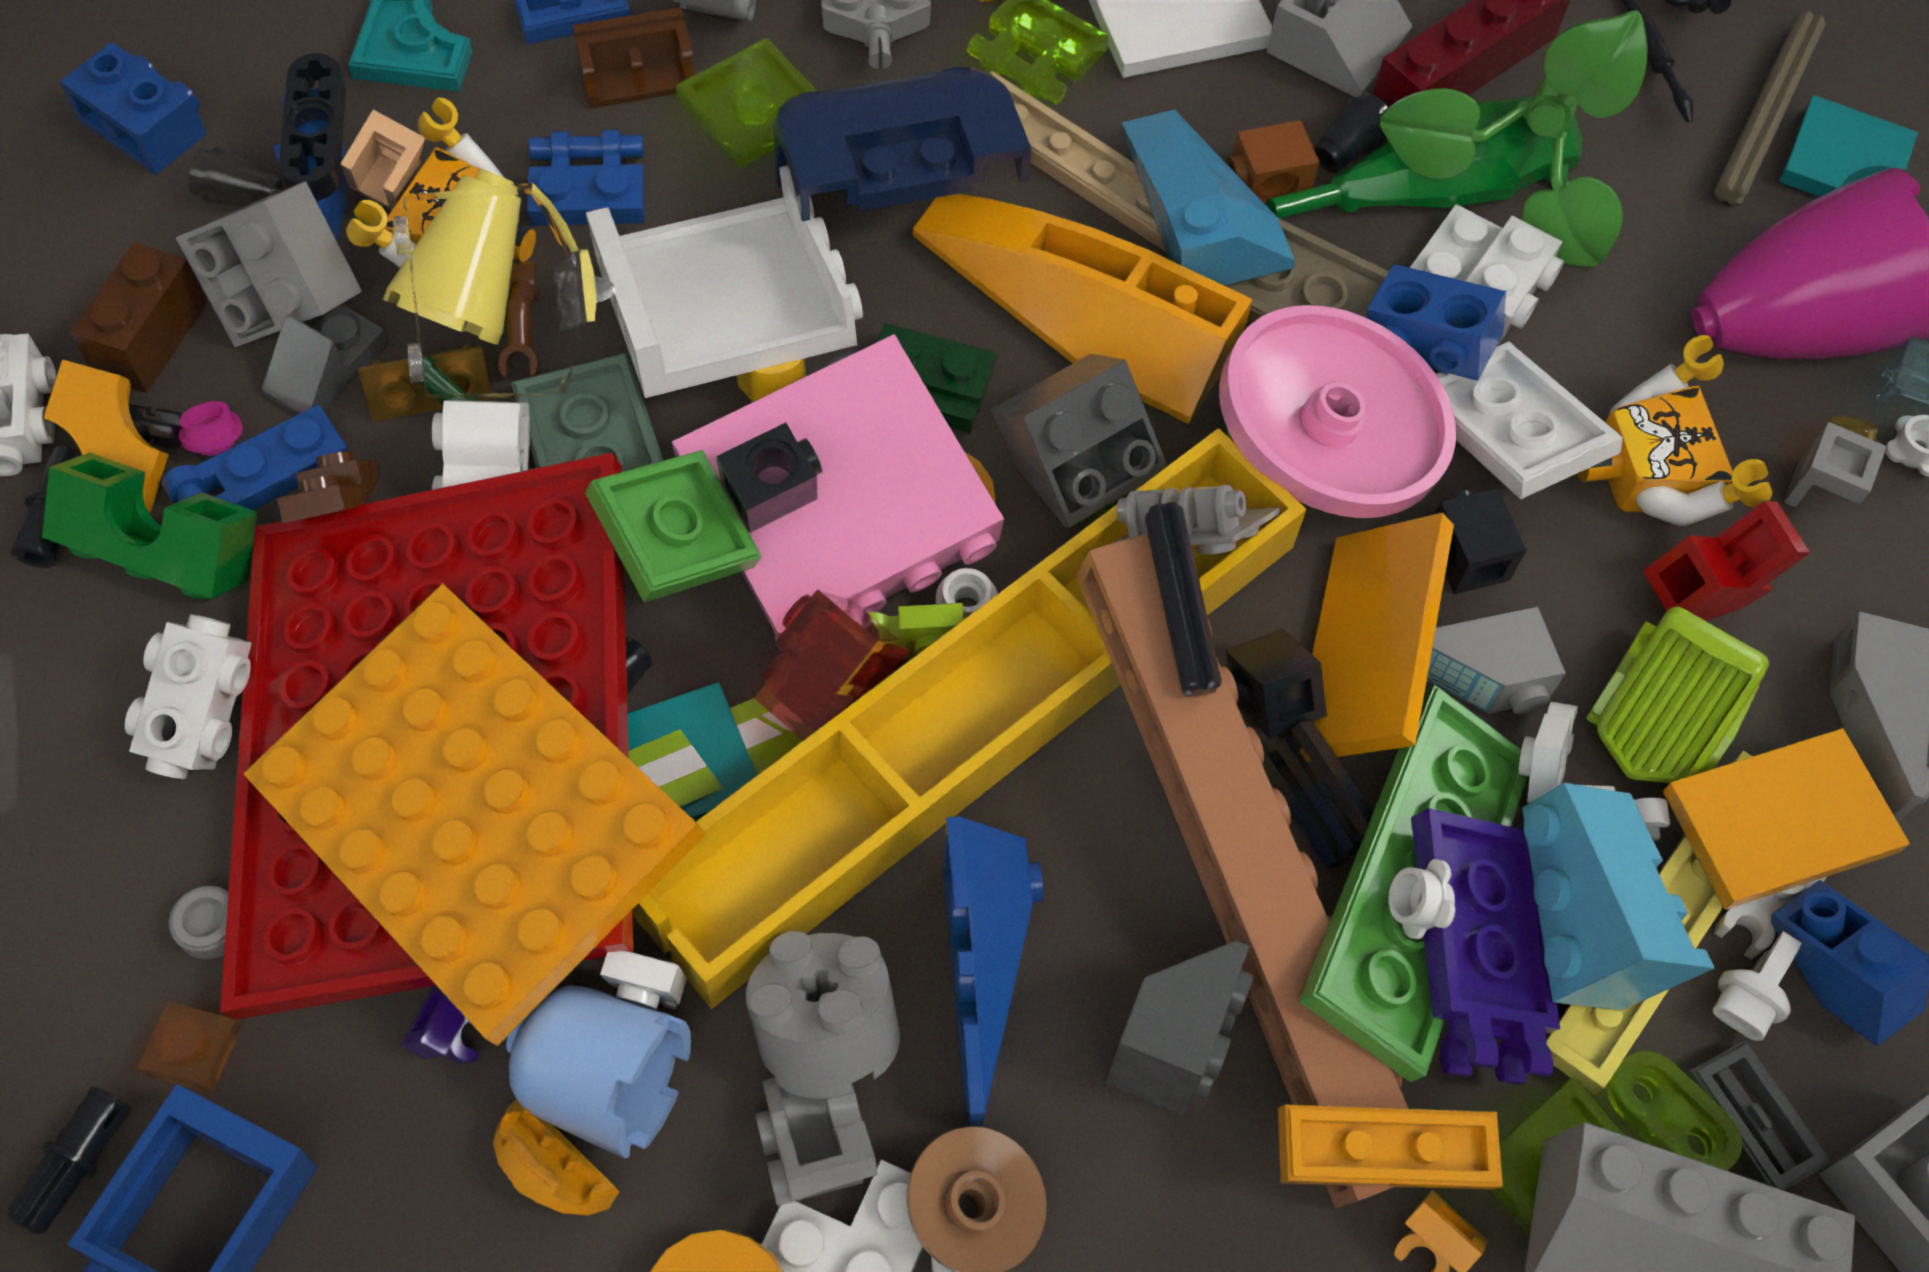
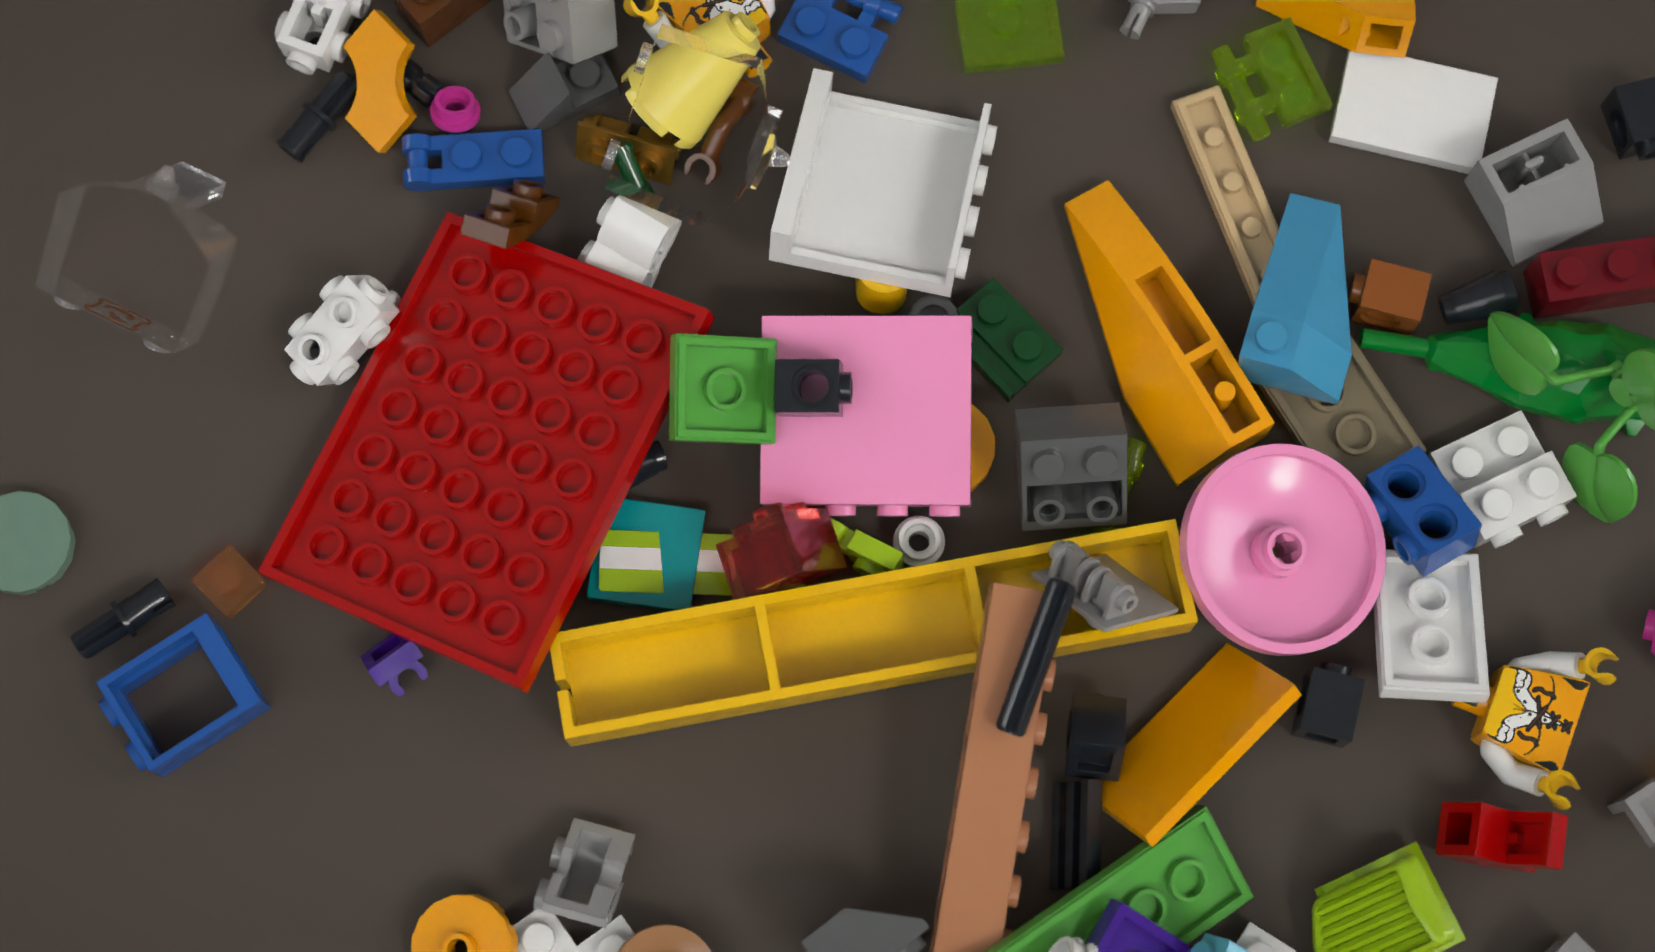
camera: 35 degrees right, 15 degrees up
(101, 514) = (348, 151): green arch -> none
(200, 922) = (276, 495): light grey tile -> none
(473, 812) = (477, 529): light orange plate -> none
(548, 1165) = (409, 792): light orange plate -> none
(595, 418) = (725, 261): sand green tile -> none
(597, 1066) = (470, 750): light blue cylinder -> none
(644, 979) = (529, 712): white plate -> none
(823, 1012) = (633, 799): light grey brick -> none
(899, 138) = (1083, 132): dark blue piece -> none
(988, 917) = (785, 794): blue wedge -> none
(1497, 662) = (1274, 810): light grey slope -> none
(1546, 755) = (1256, 904): white plate -> none

